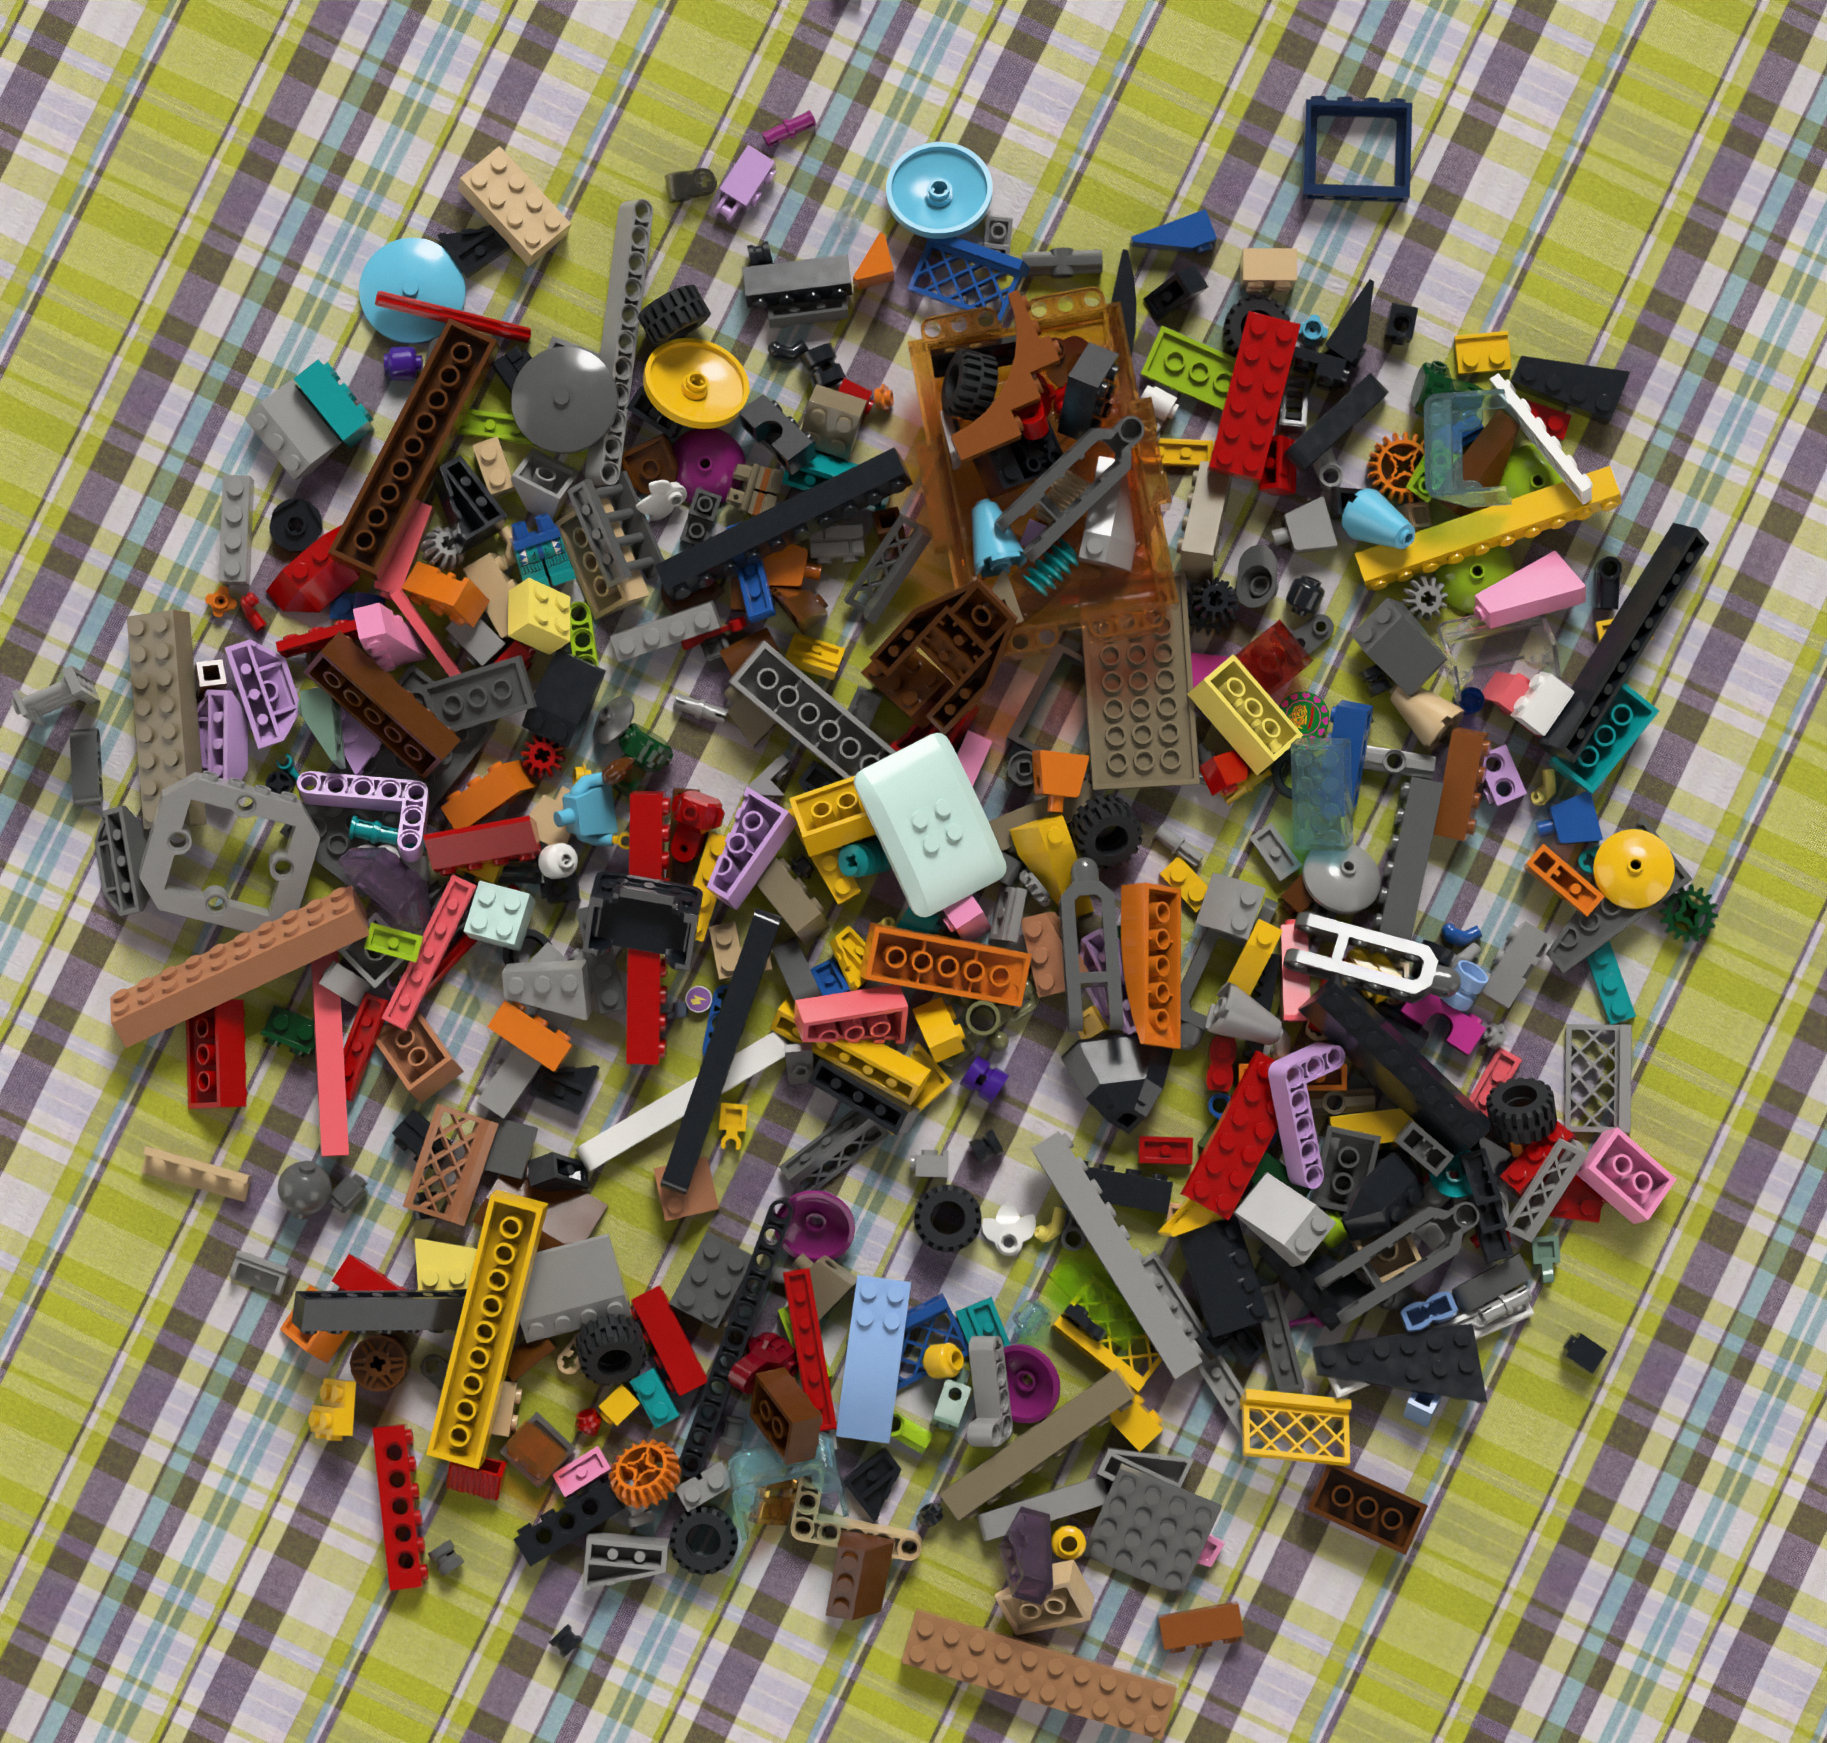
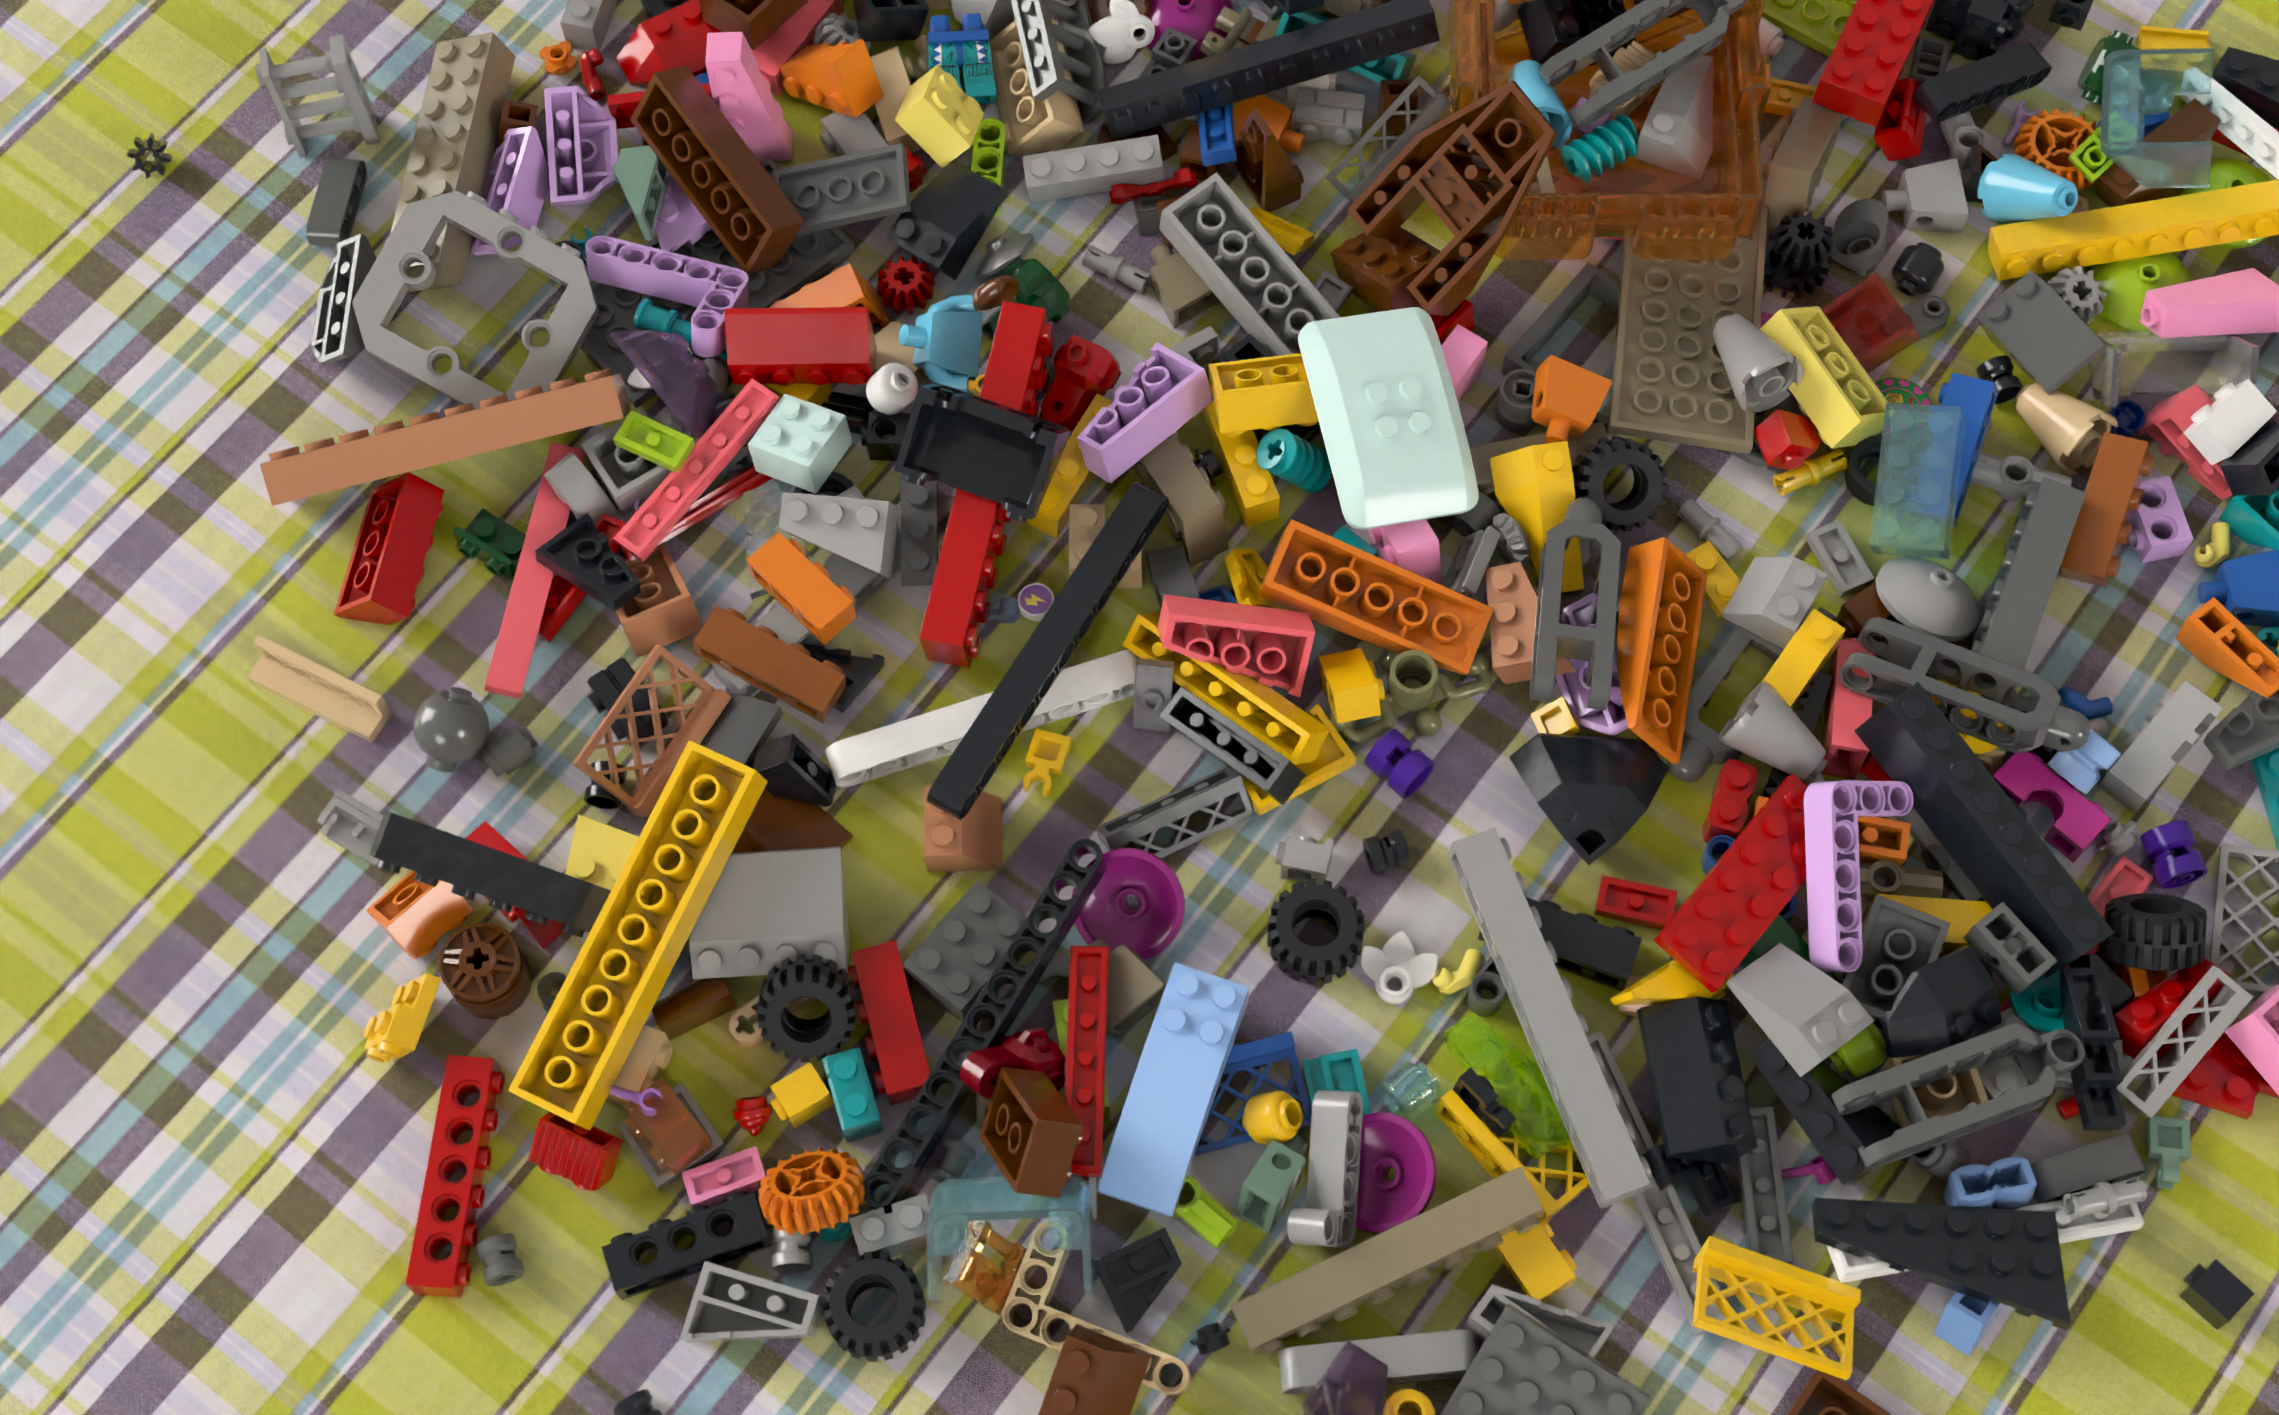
camera: 10 degrees right, 20 degrees down
(369, 1043) = (590, 564): none -> black wing
(424, 632) = (790, 108): coral tile -> none
(512, 1438) = (638, 1098): none -> medium lavender hand
(522, 1100) = (770, 663): none -> dark orange brick
(1189, 720) = (1755, 363): none -> light grey cone
(1370, 441) = (2019, 119): none -> lavender hand
(1528, 1034) = (2173, 854): none -> dark purple wheel

